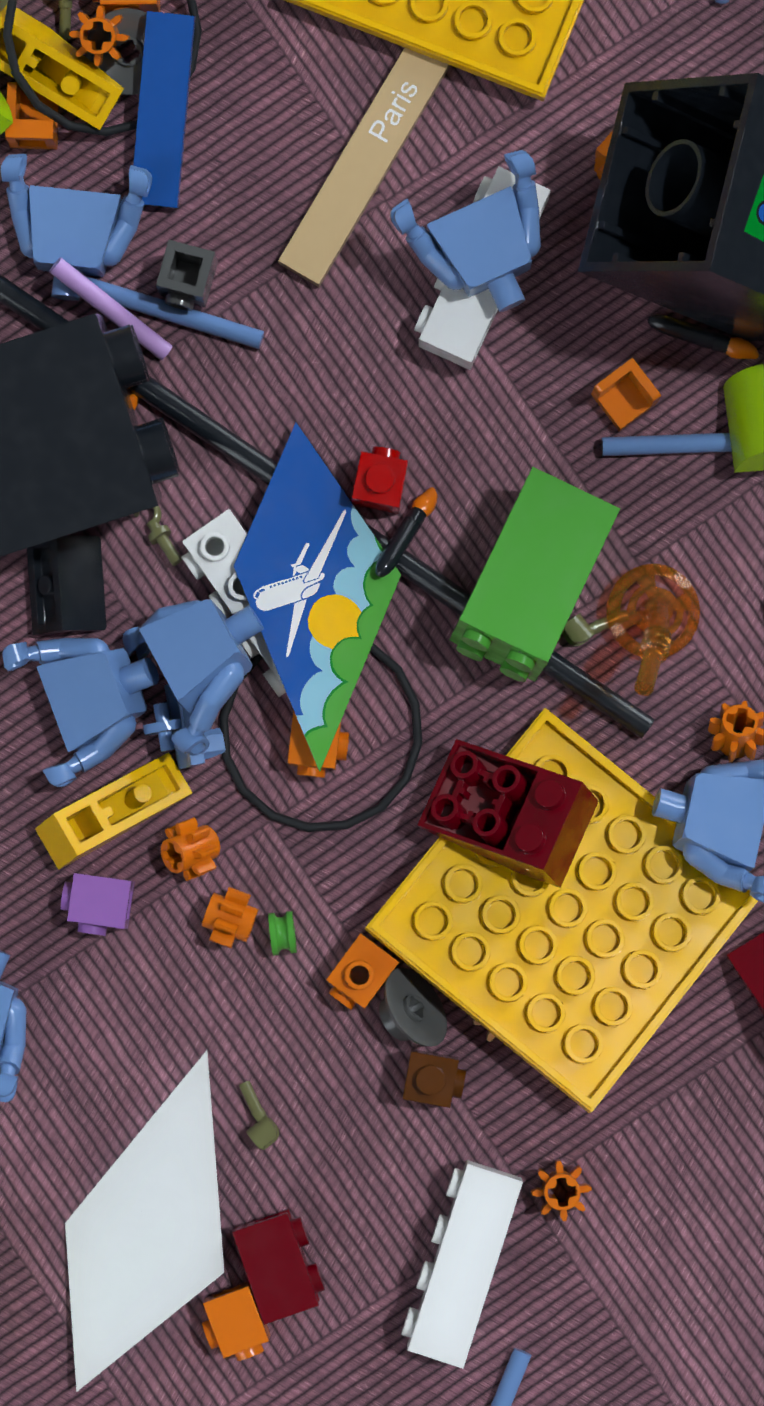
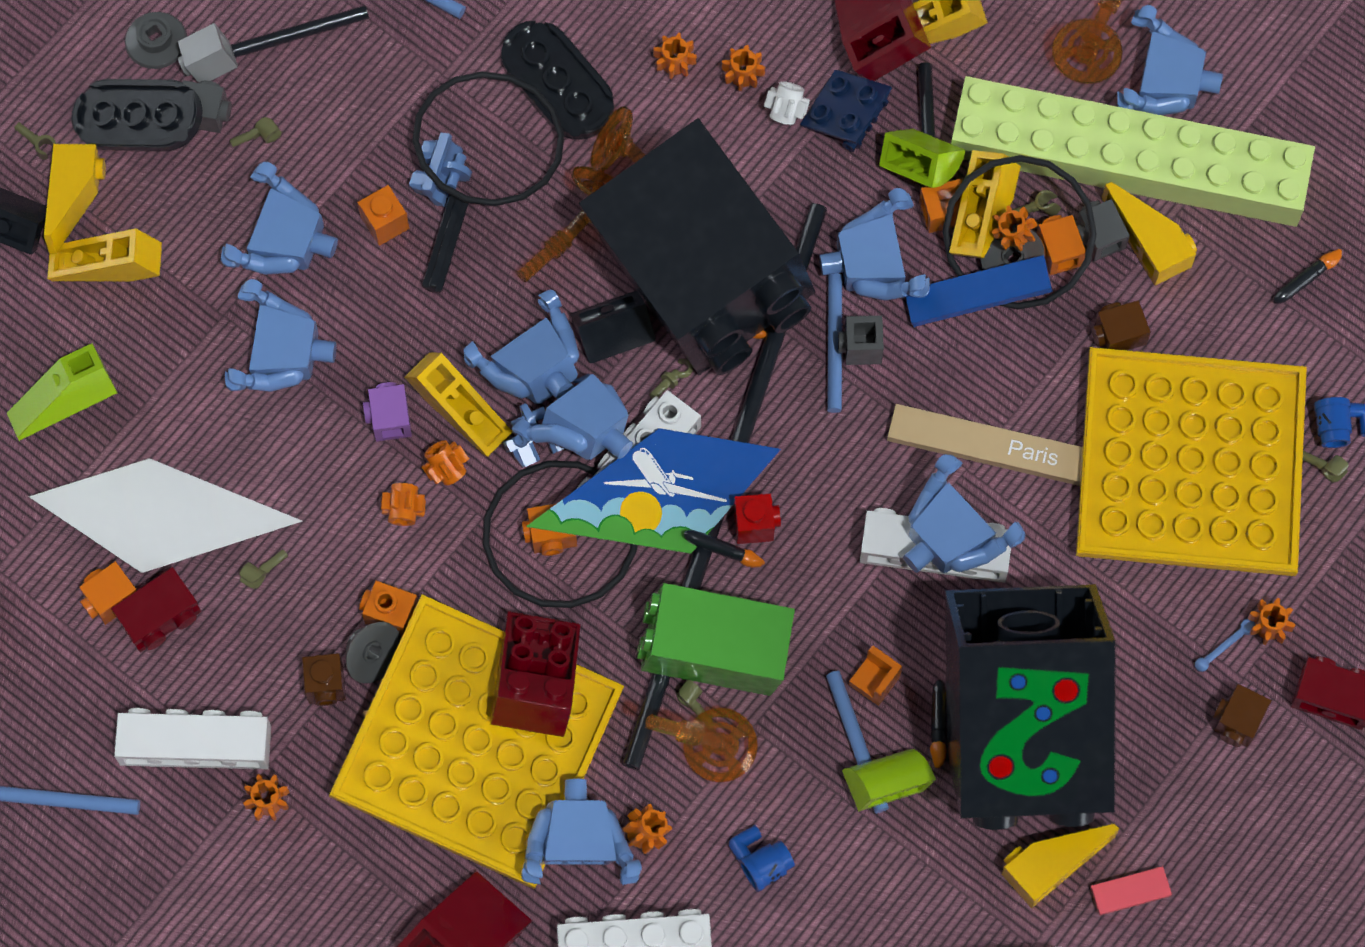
camera: 70 degrees right, 15 degrees down
(109, 307) = (821, 296): lavender bar -> none
(282, 933) = (402, 545): bright green bush -> none

